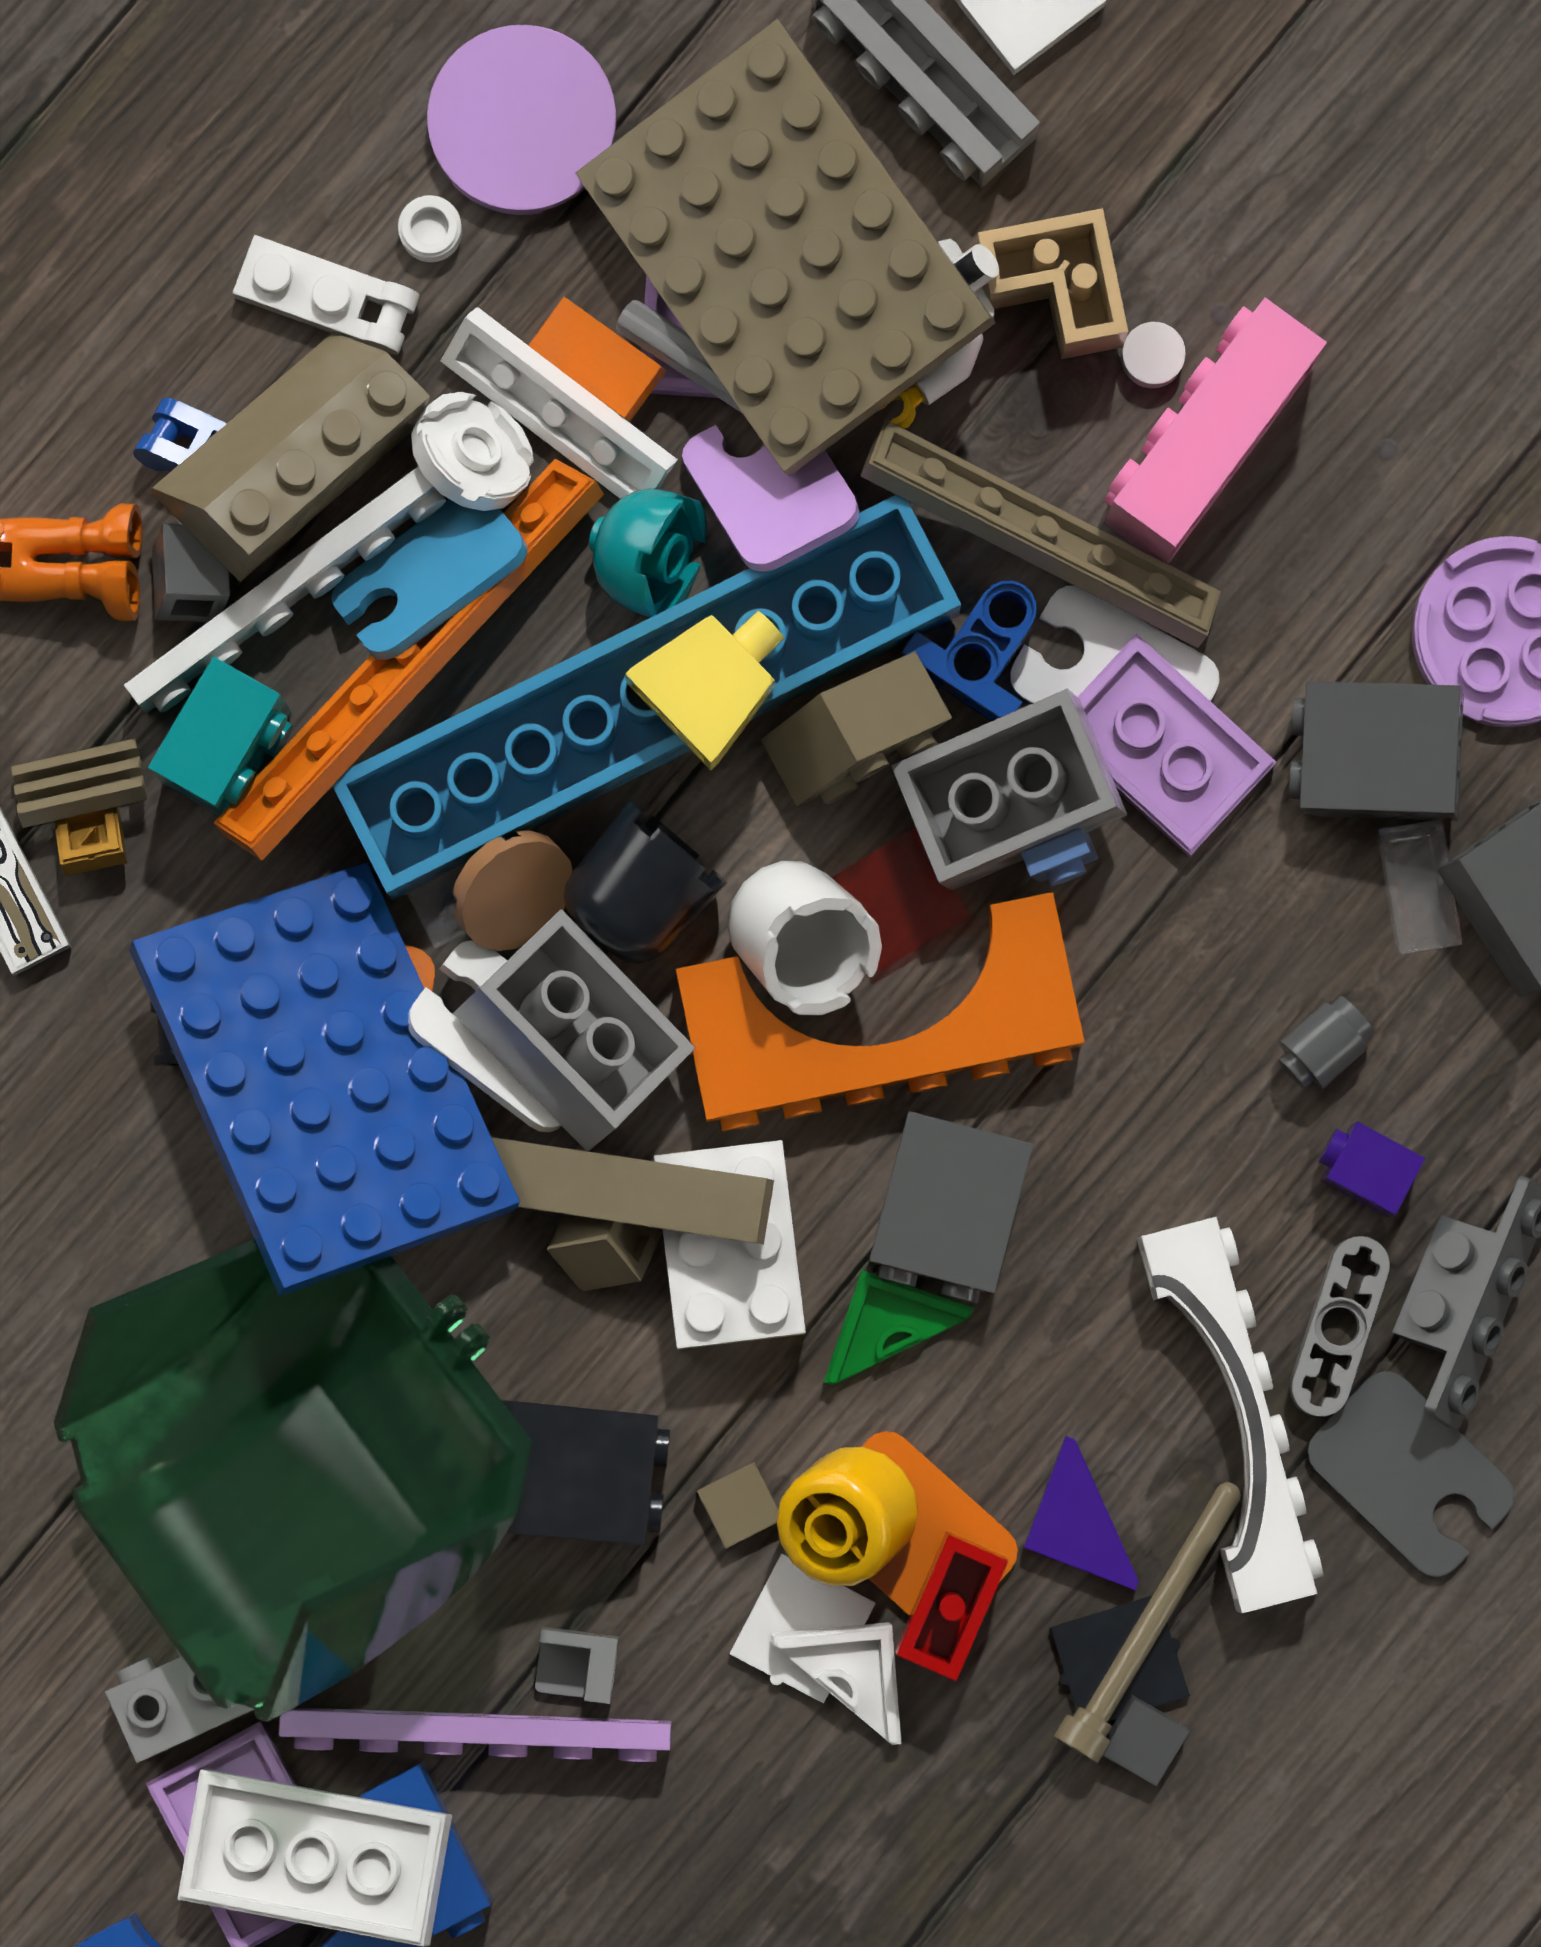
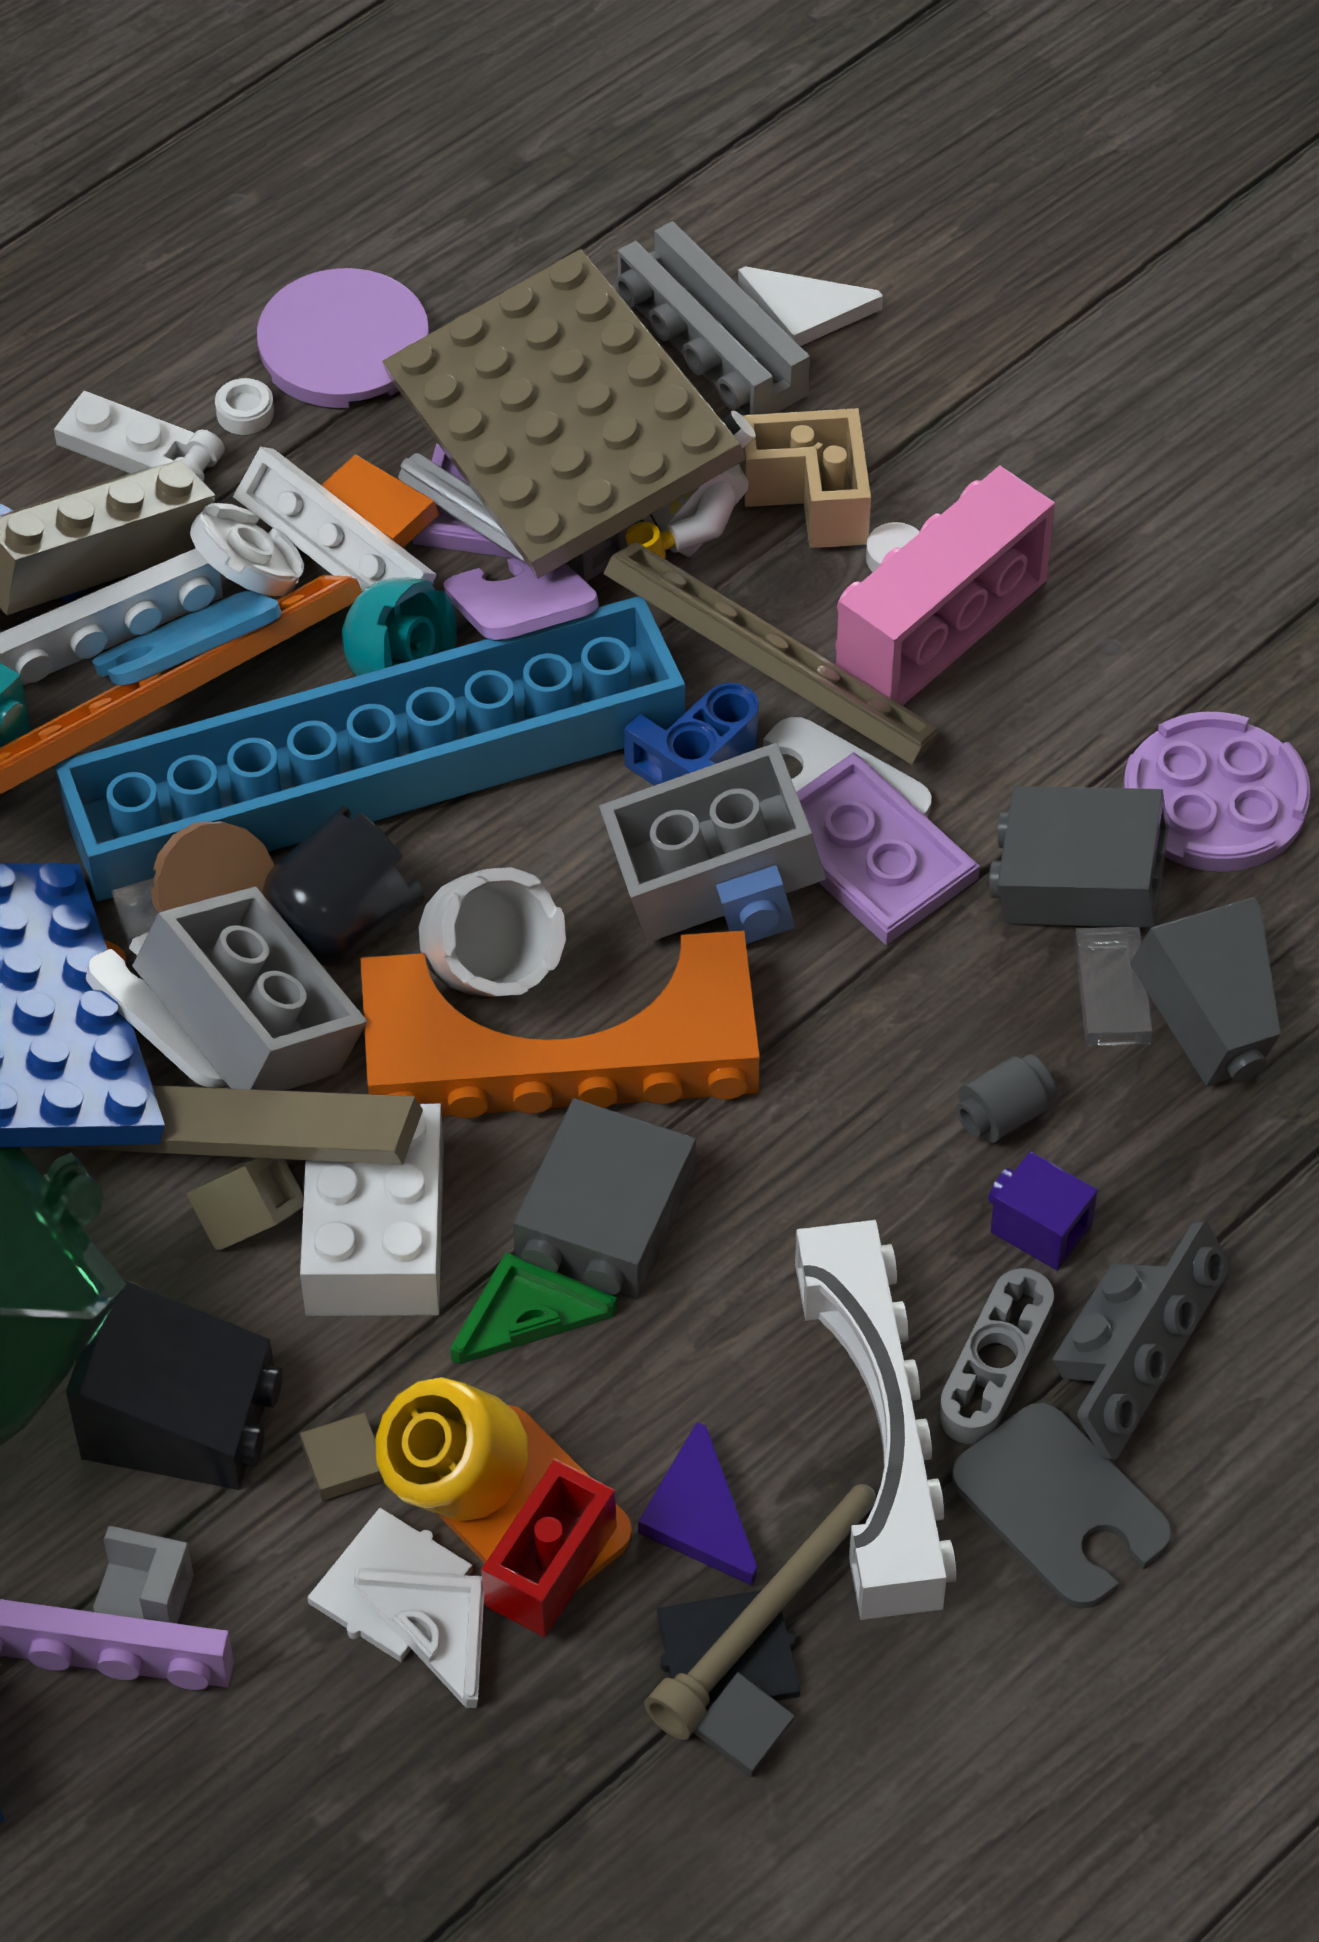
camera: 10 degrees right, 30 degrees down
(708, 682) = (429, 706): light yellow torso -> none
(854, 727) = (560, 775): dark tan brick -> none
(902, 896) = (600, 954): clear red piece -> none

